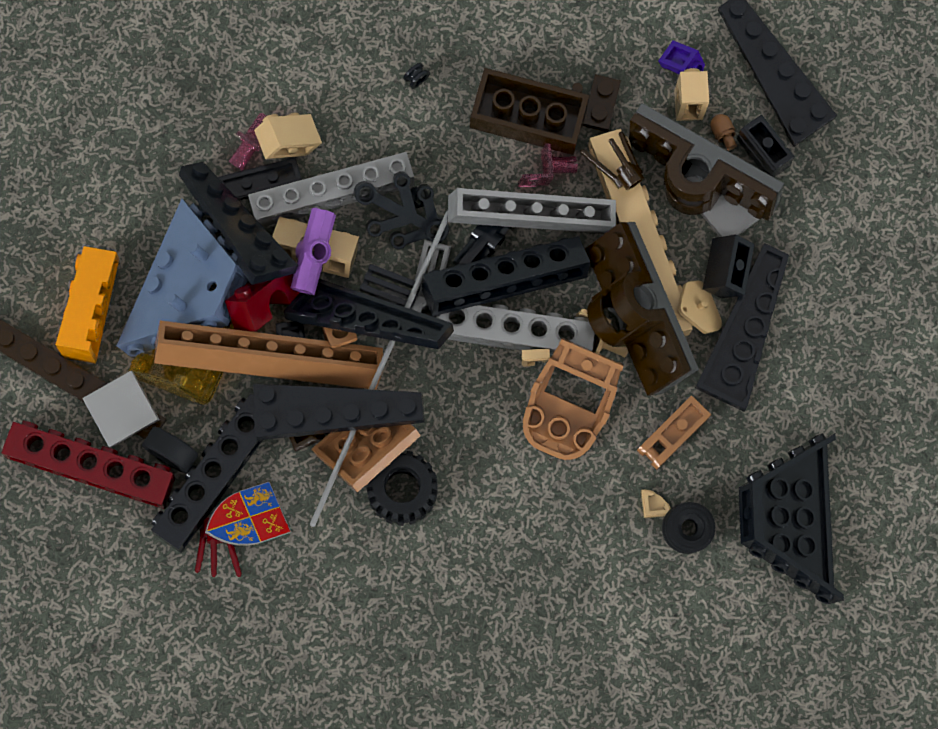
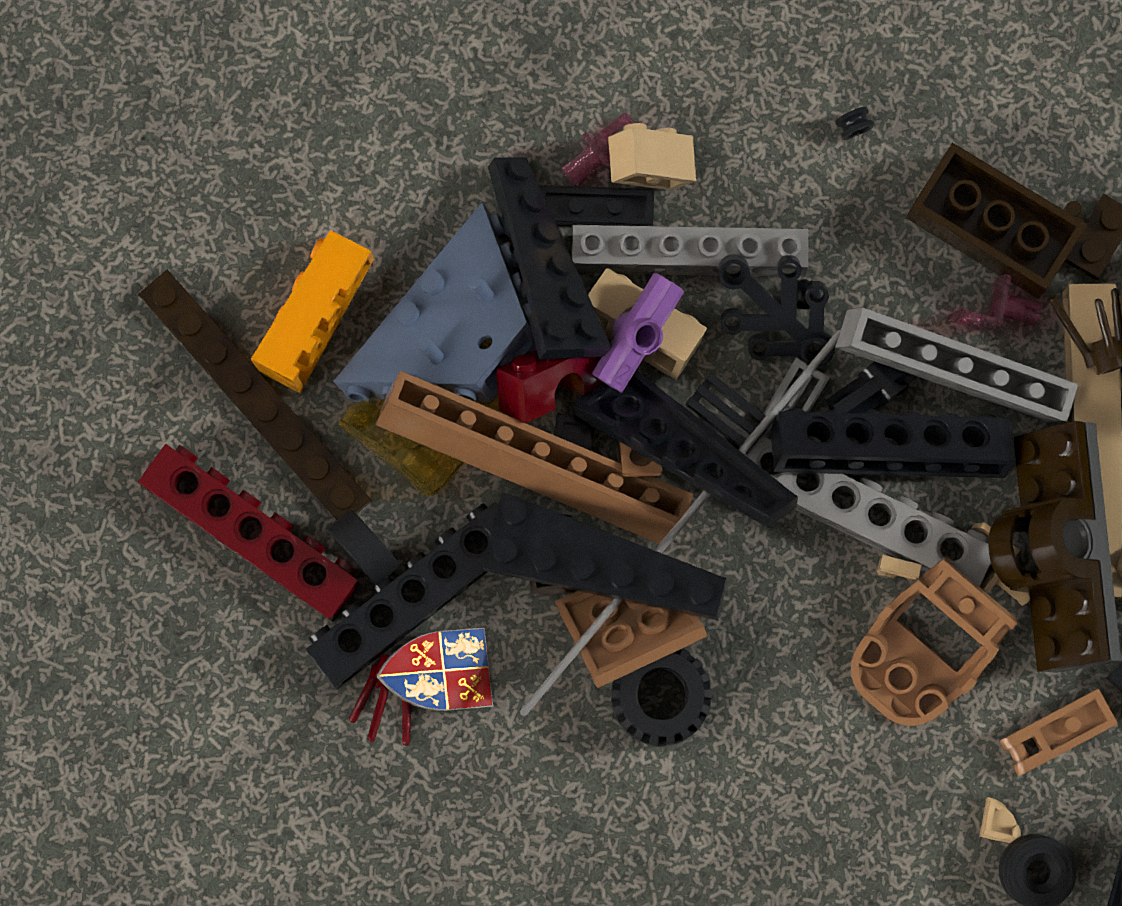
camera: 25 degrees right, 5 degrees up
(121, 409) = (314, 470): light grey tile -> none

